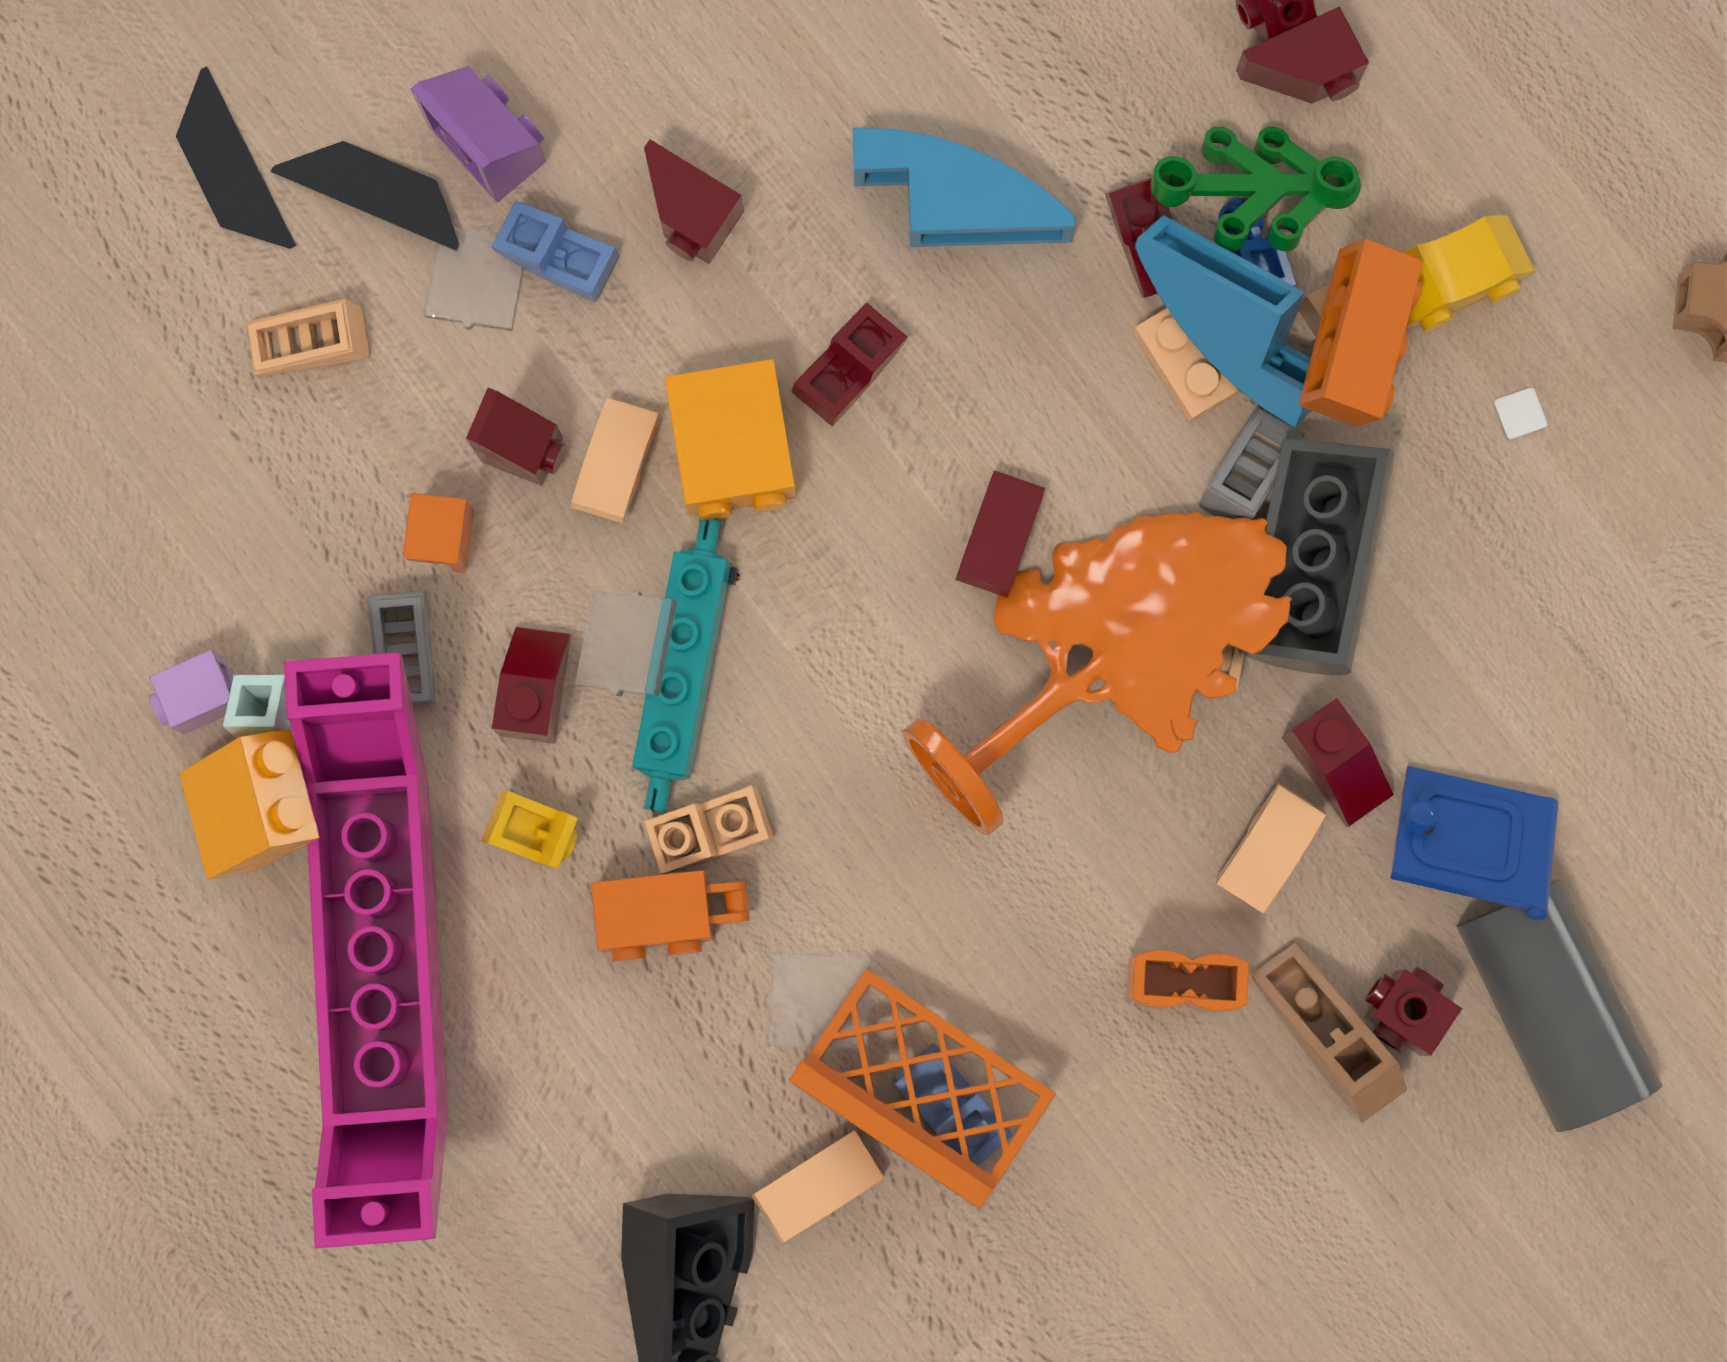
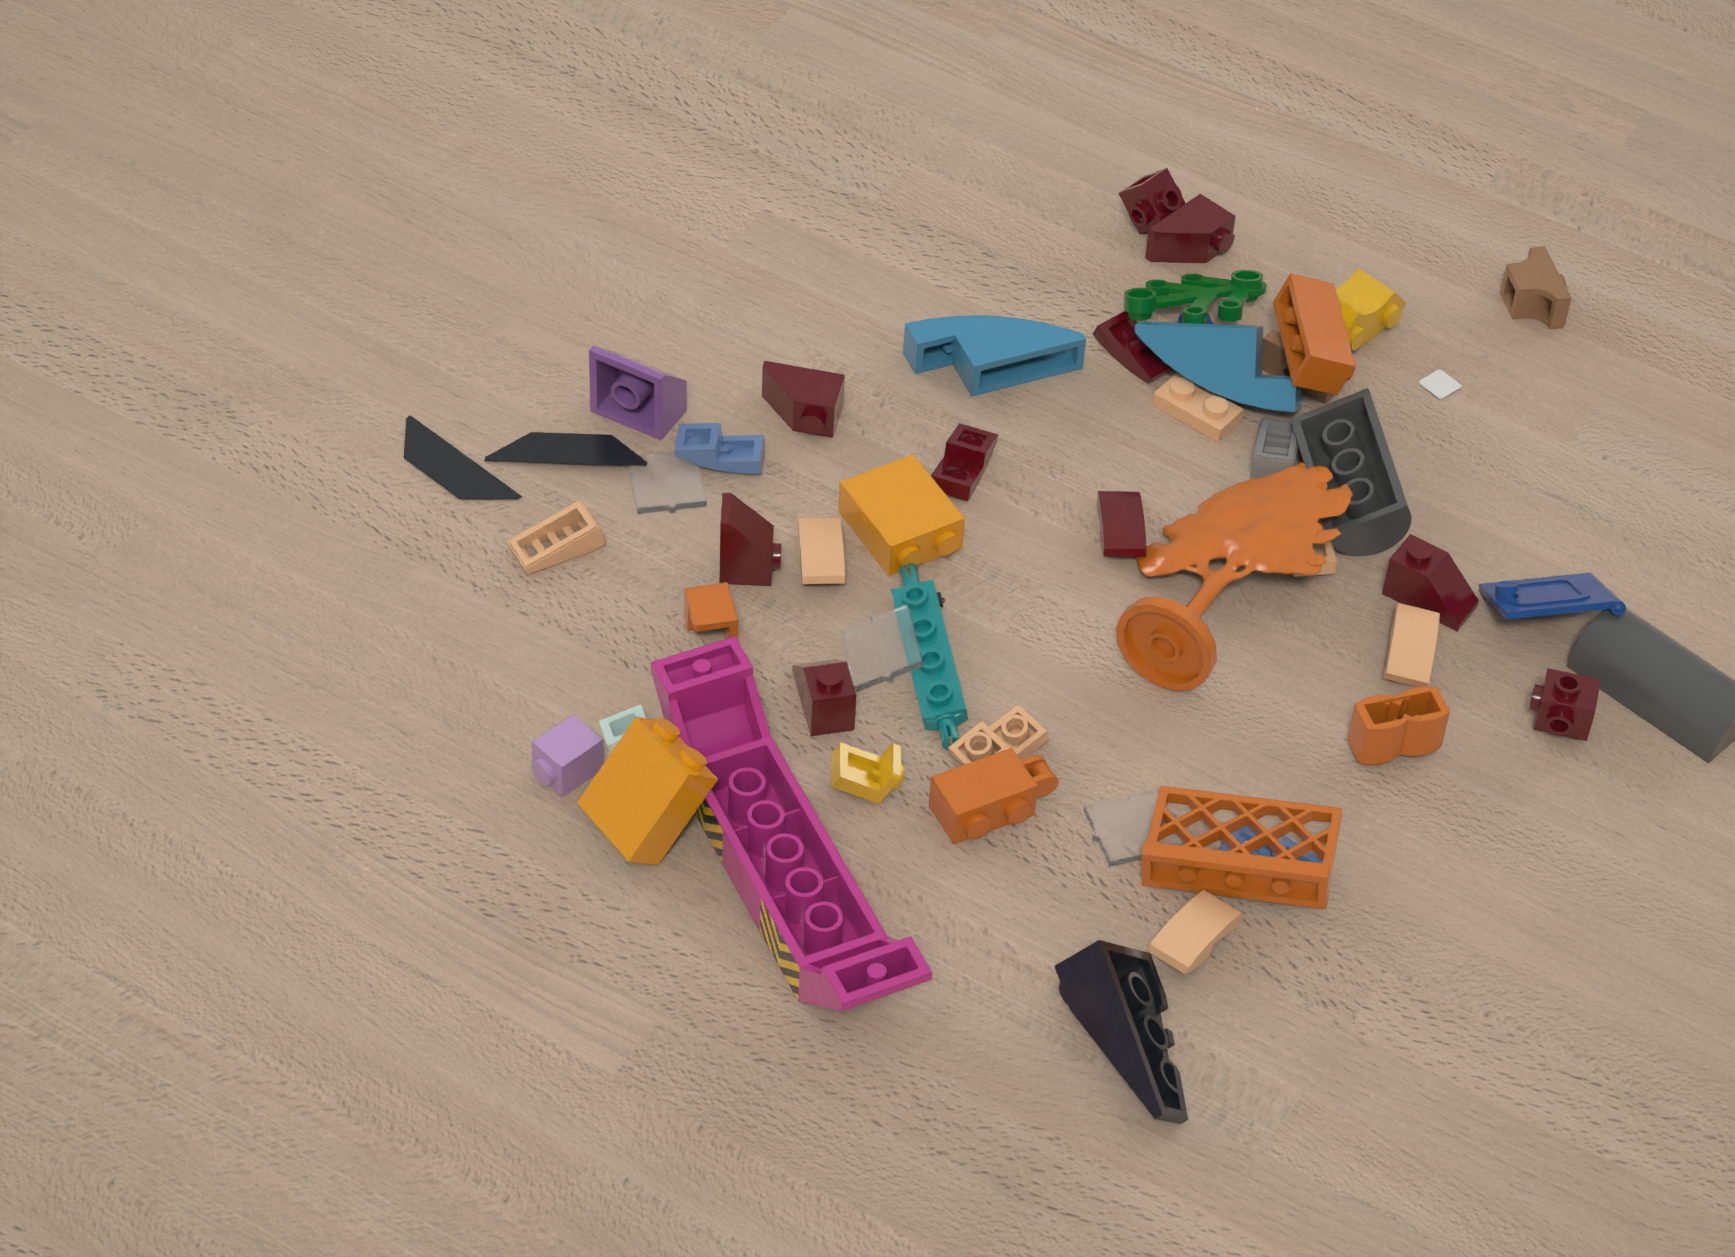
camera: 25 degrees left, 35 degrees down
(1331, 1033) = (1526, 738): medium nougat slope -> none

